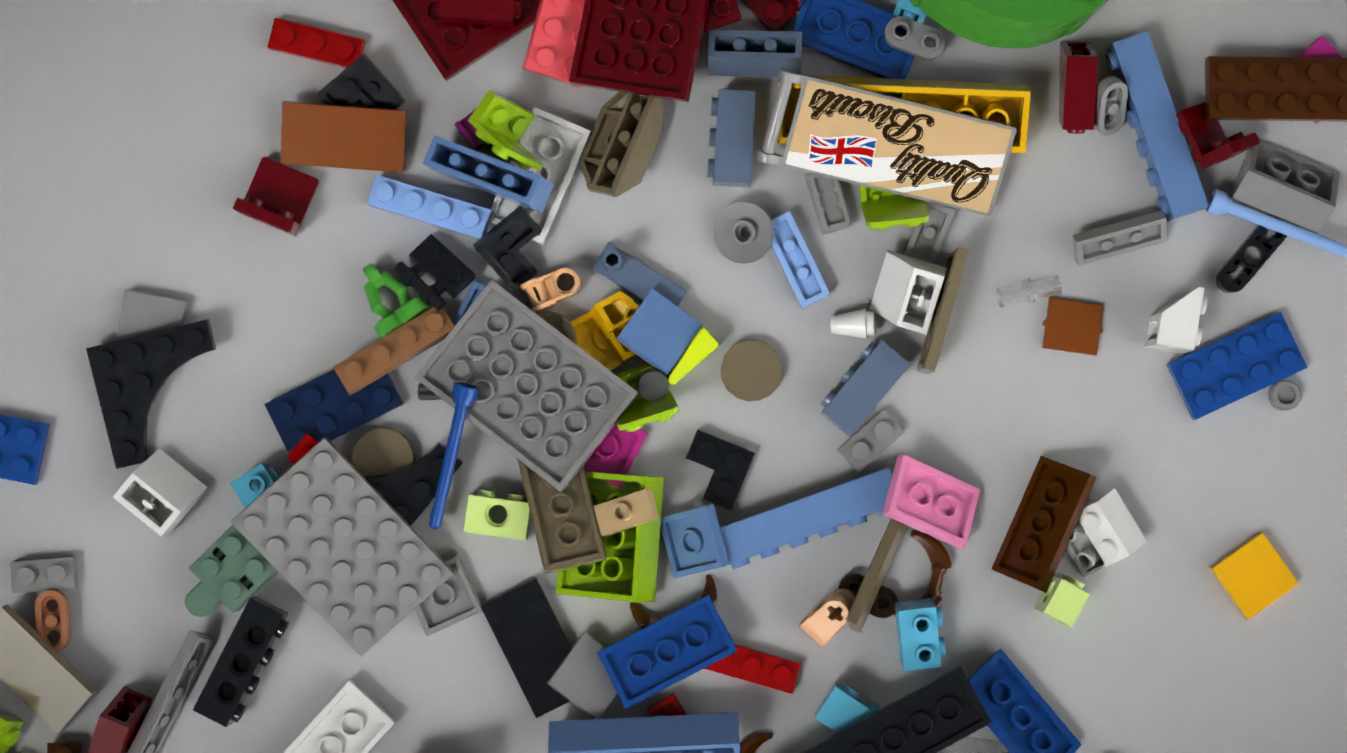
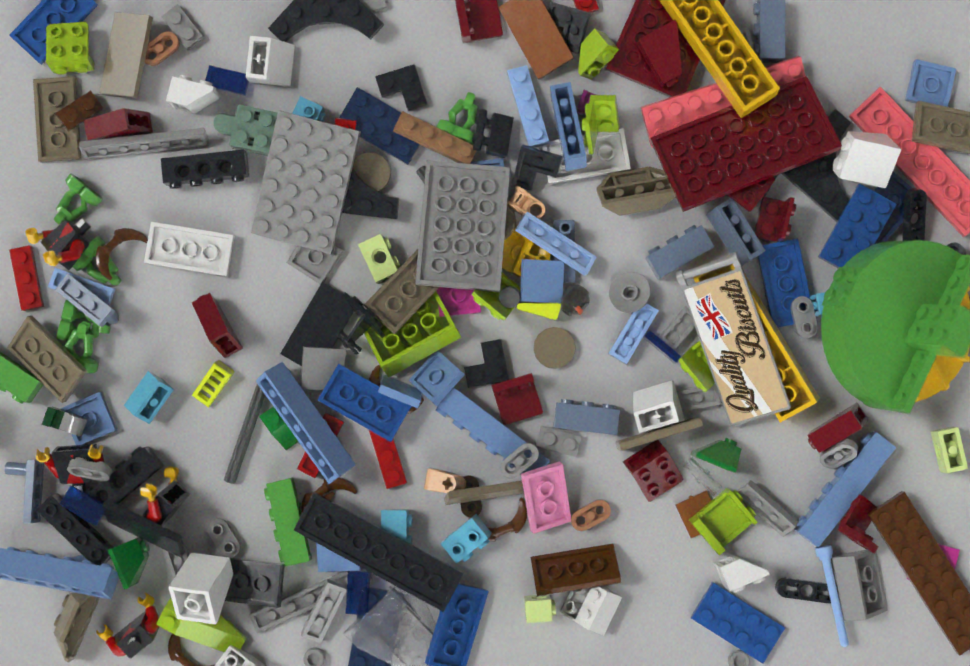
camera: 55 degrees right, 0 degrees up
(139, 620) = (190, 95): none -> white slope
(148, 562) = (227, 80): none -> clear blue tile
(297, 338) = (404, 81): none -> black plate
(418, 80) = (595, 53): none -> lime slope
(463, 395) = (433, 194): blue piece -> none
(566, 582) = (366, 320): none -> black plate
(624, 284) = (555, 243): none -> light blue plate
(626, 512) = (428, 328): tan plate -> none
(682, 597) = (400, 391): none -> medium blue tile
(709, 306) = (574, 300): none -> clear smoke head
(785, 458) = (517, 399): none -> dark red bracket
(837, 236) = (661, 346): none -> clear blue tile
(854, 324) = (619, 389): white cone -> none
(864, 505) = (520, 461): none -> light grey plate
(983, 347) = (653, 470): none -> dark red bracket
(990, 461) = (591, 517): none -> nougat plate
(1016, 251) = (720, 453): none -> green slope
(1099, 300) = (723, 519): none -> lime panel

